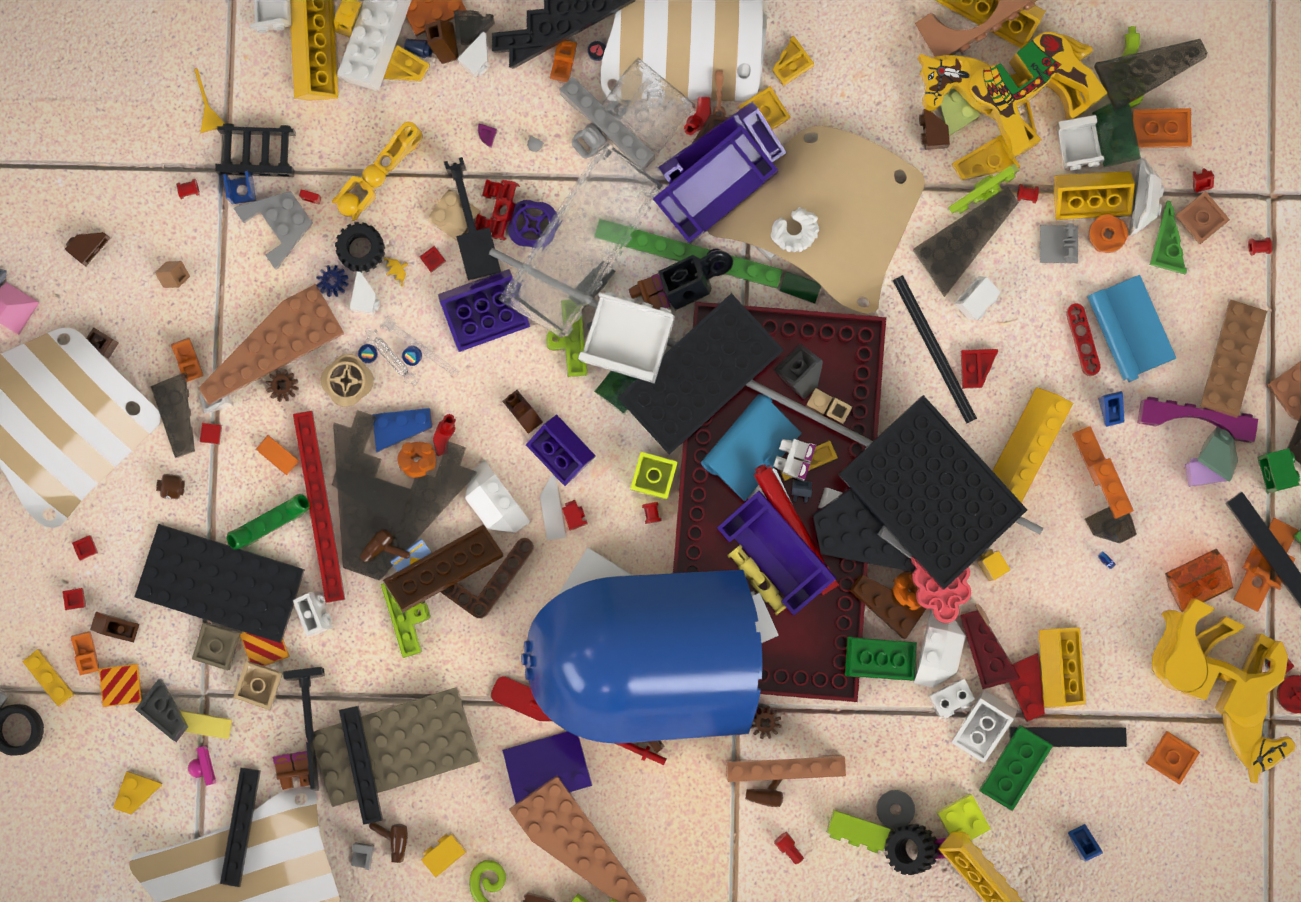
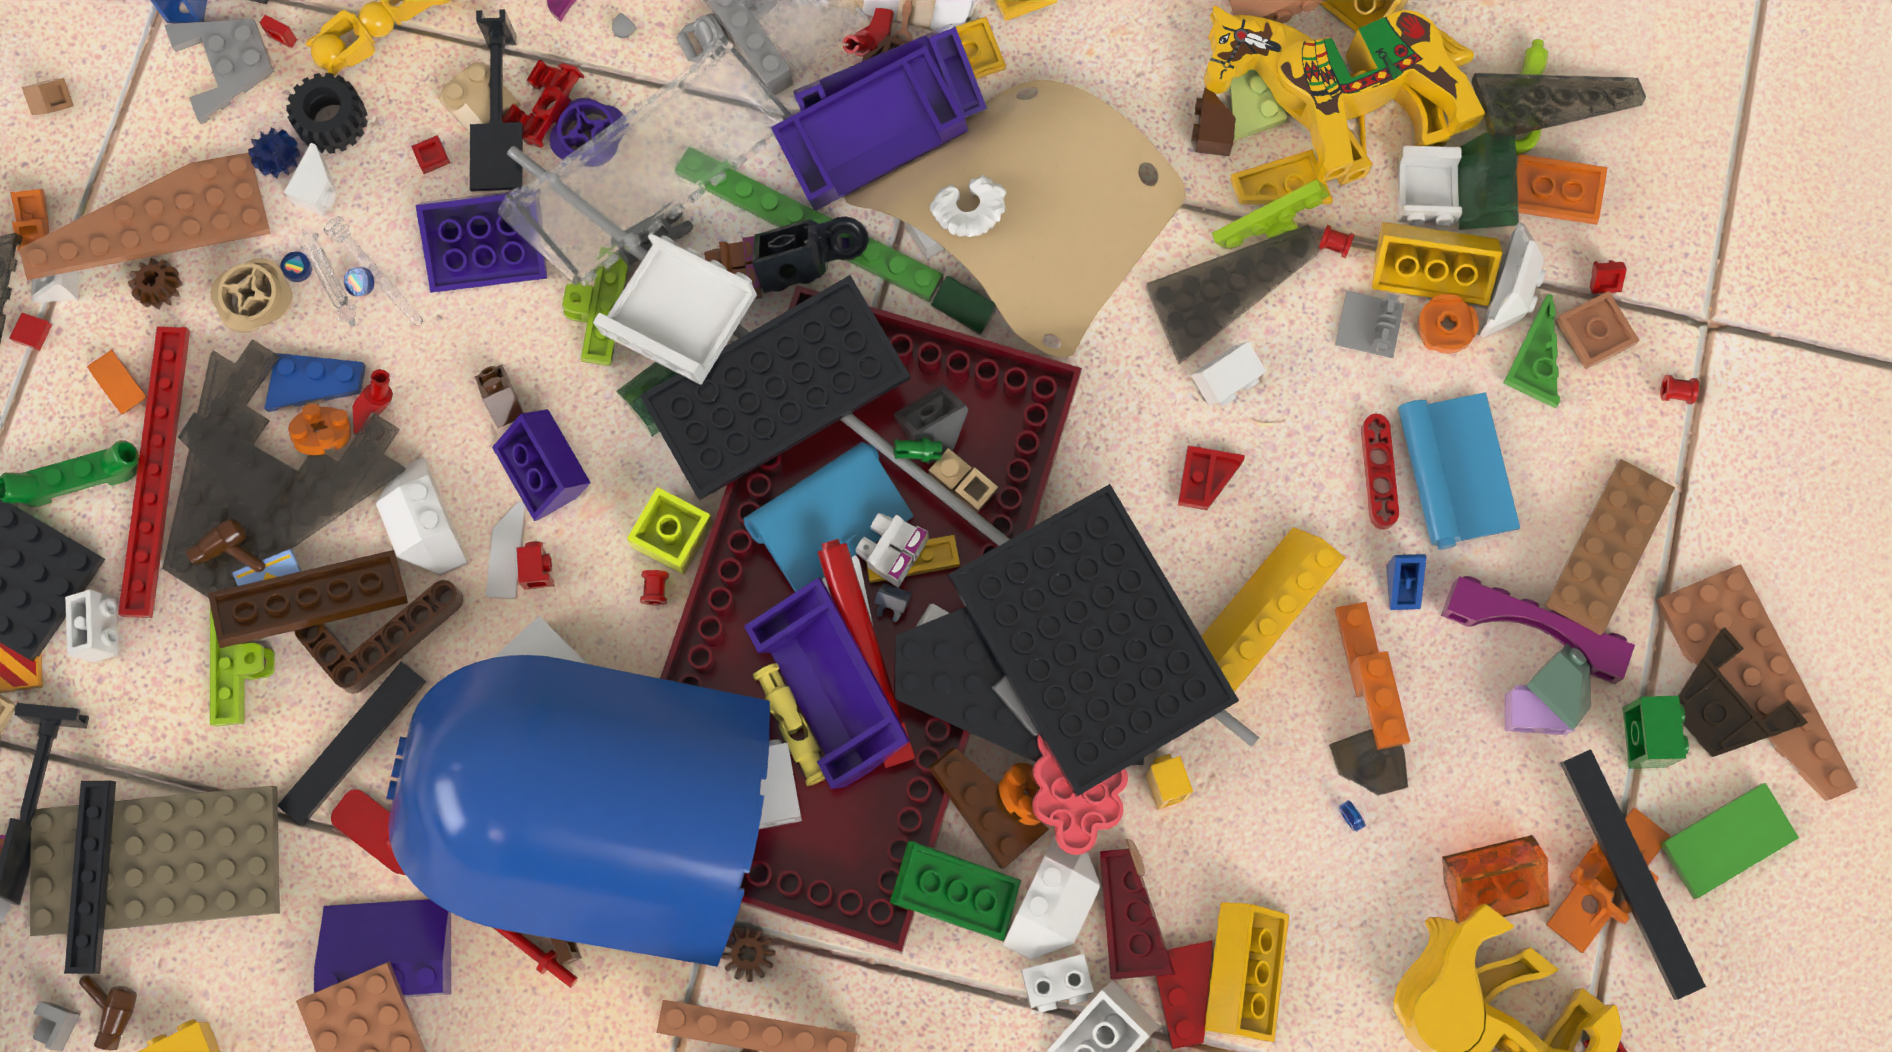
camera: 15 degrees right, 10 degrees down
(396, 269) = (374, 158): yellow piece -> none
(491, 649) = (351, 744): none -> black tile
(801, 393) = (921, 449): none -> green pin
(934, 349) = (1148, 441): black sticker -> none

